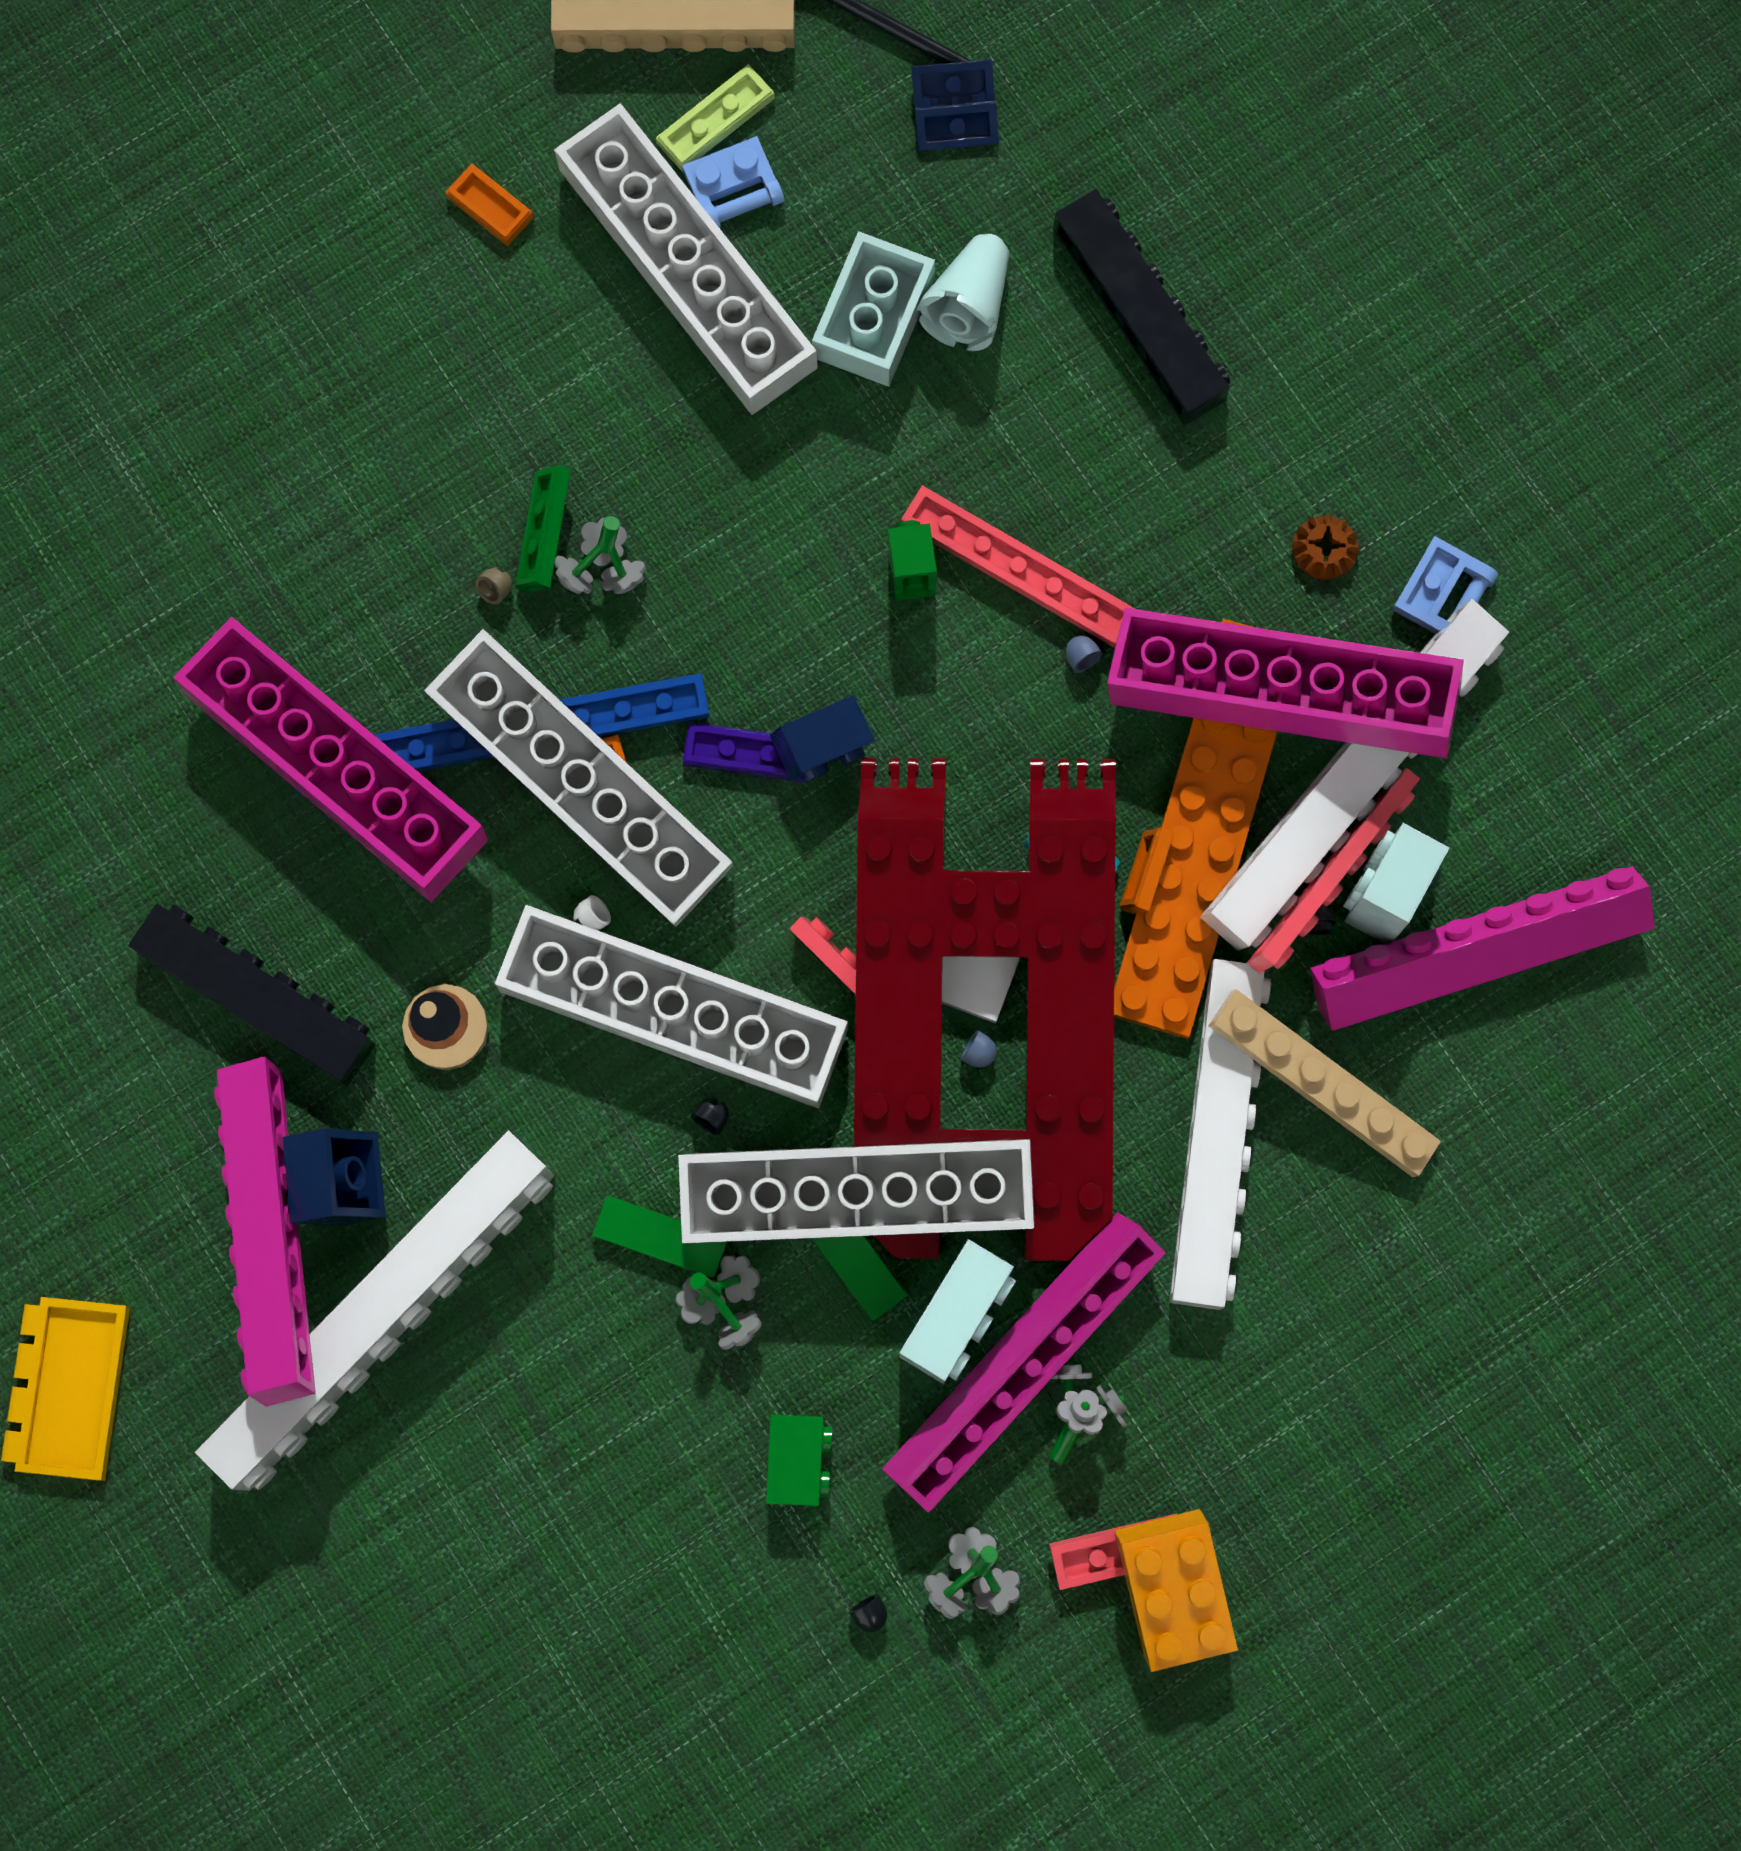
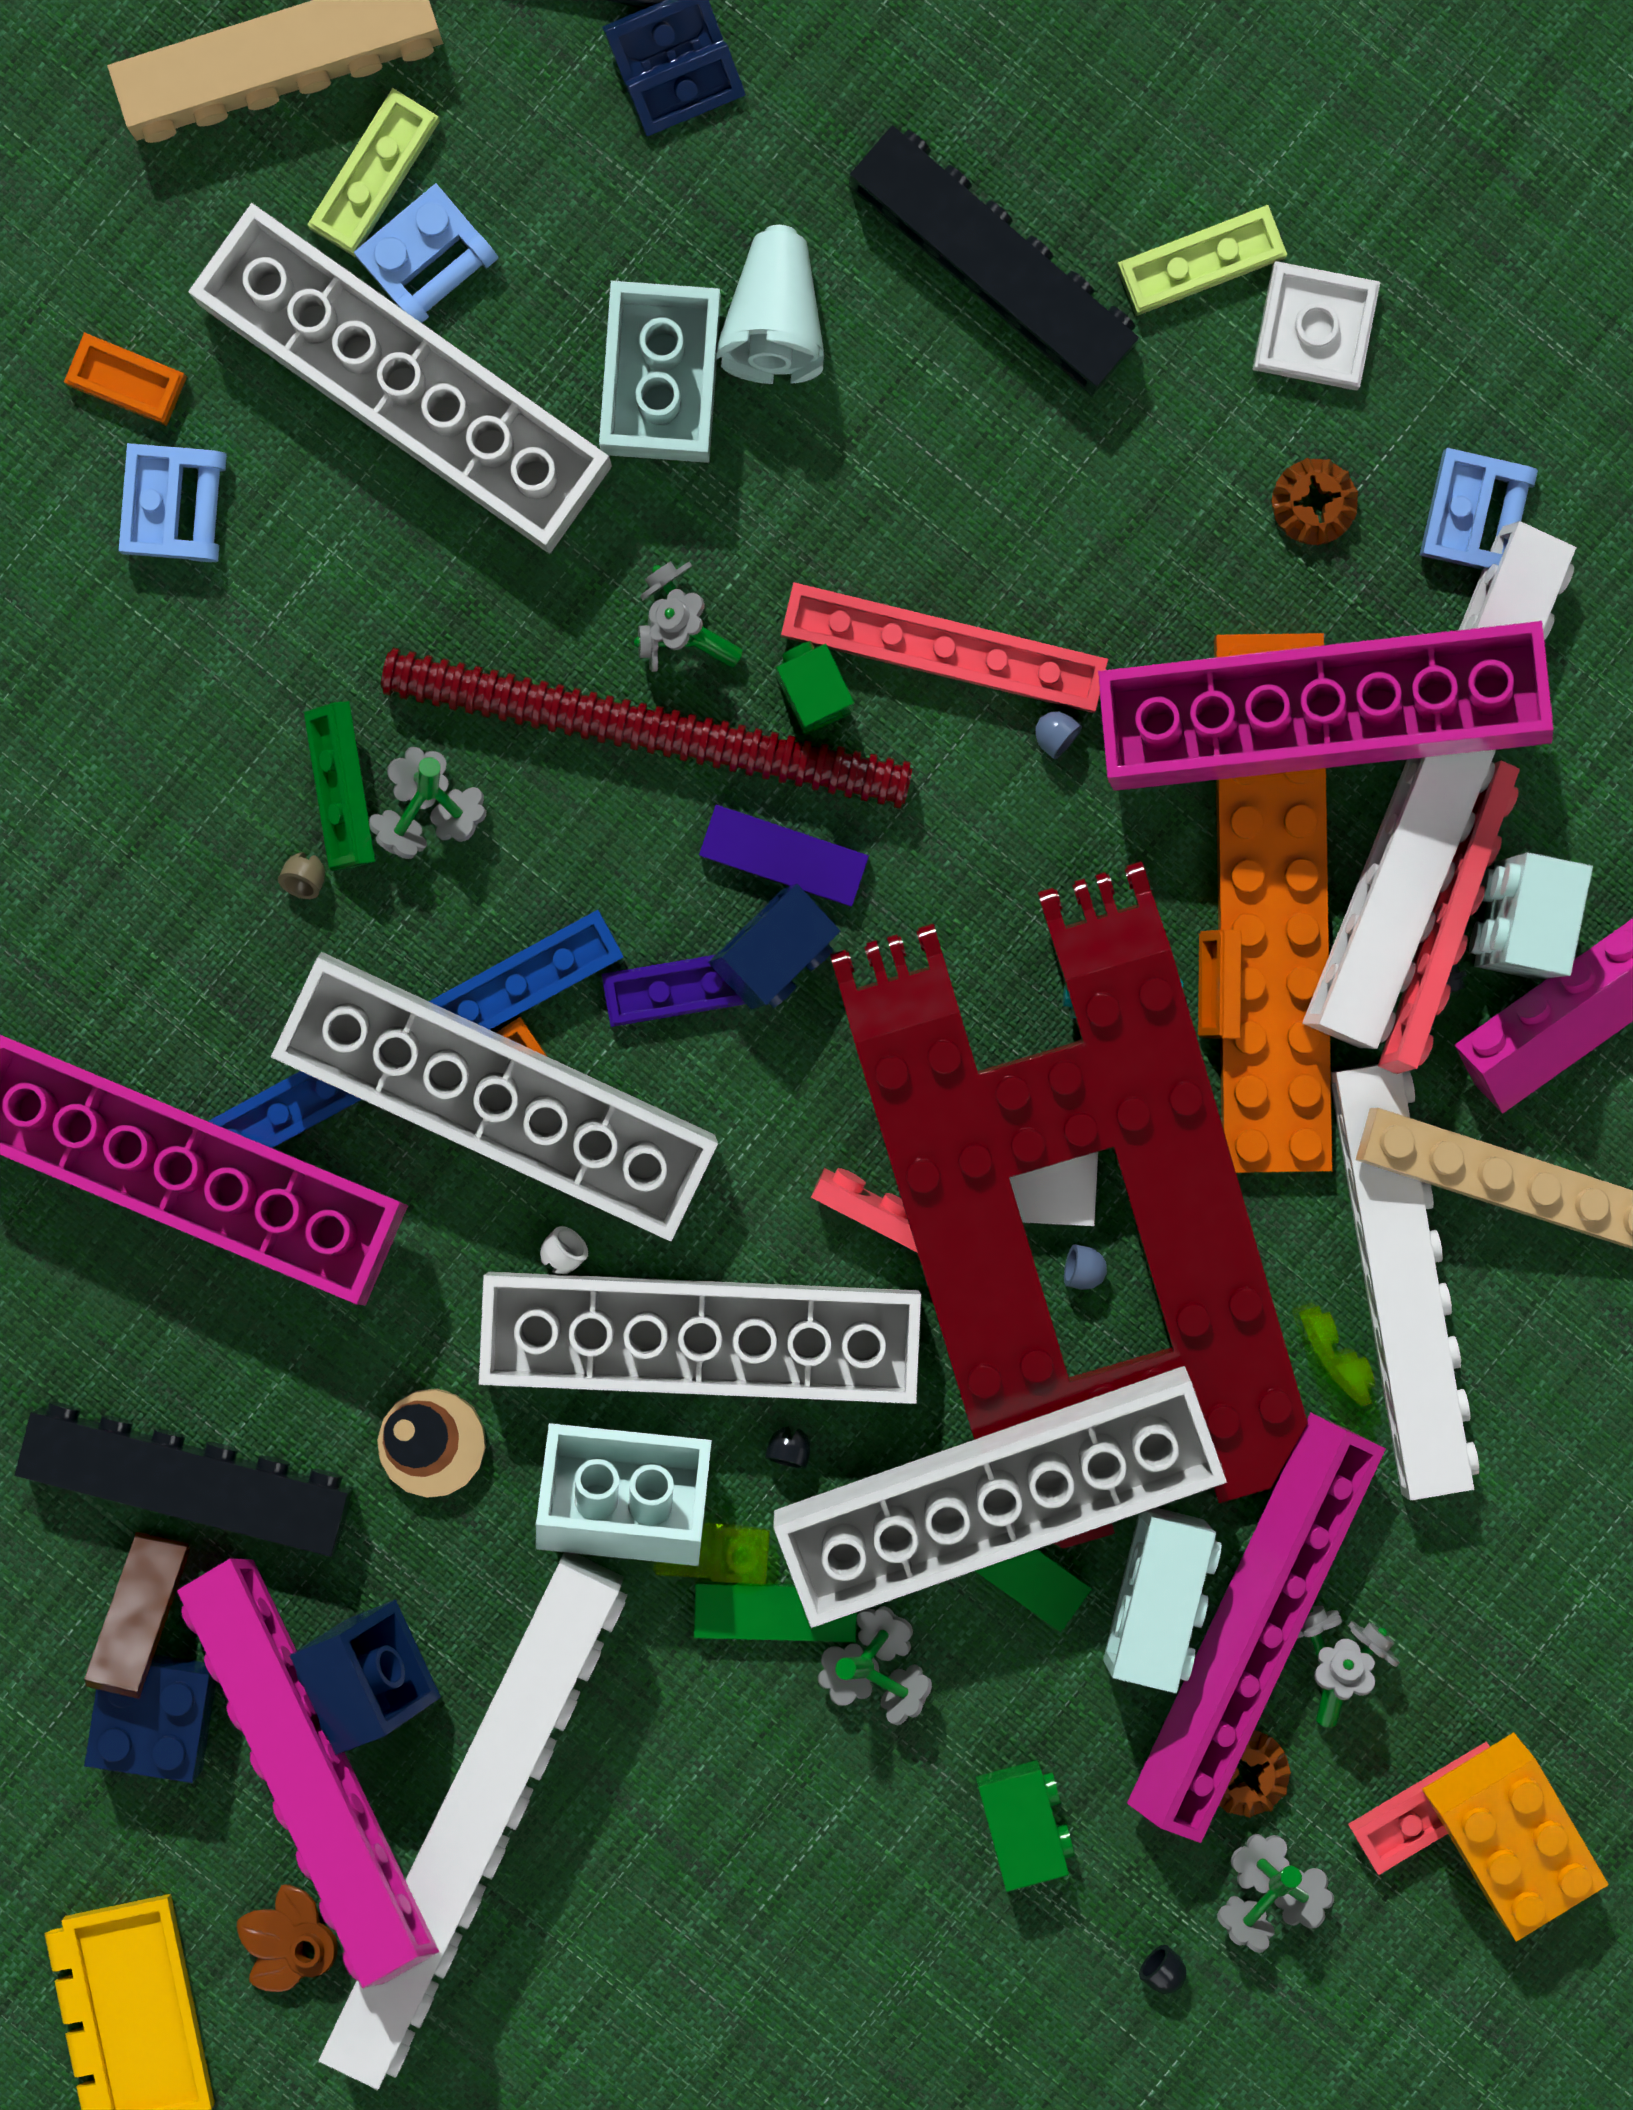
camera: 25 degrees left, 10 degrees up
(164, 1160) = (159, 1732): none -> dark blue brick
(180, 1078) = (137, 1615): none -> tile
(198, 1367) = (278, 1941): none -> dark orange plate
(480, 291) = (154, 501): none -> light blue plate
(574, 1103) = (623, 1494): none -> light aqua brick
(627, 1175) = (726, 1555): none -> clear neon green slope
(781, 556) = (645, 727): none -> dark red piece
(828, 478) = (677, 623): none -> light grey plant
(848, 676) = (783, 855): none -> dark purple tile
(1001, 1490) = (1272, 1778): none -> dark orange gear
(1152, 1186) = (1342, 1366): none -> clear neon green slope
(1293, 354) = (1201, 260): none -> yellowish green tile
(1364, 424) = (1316, 325): none -> white tile

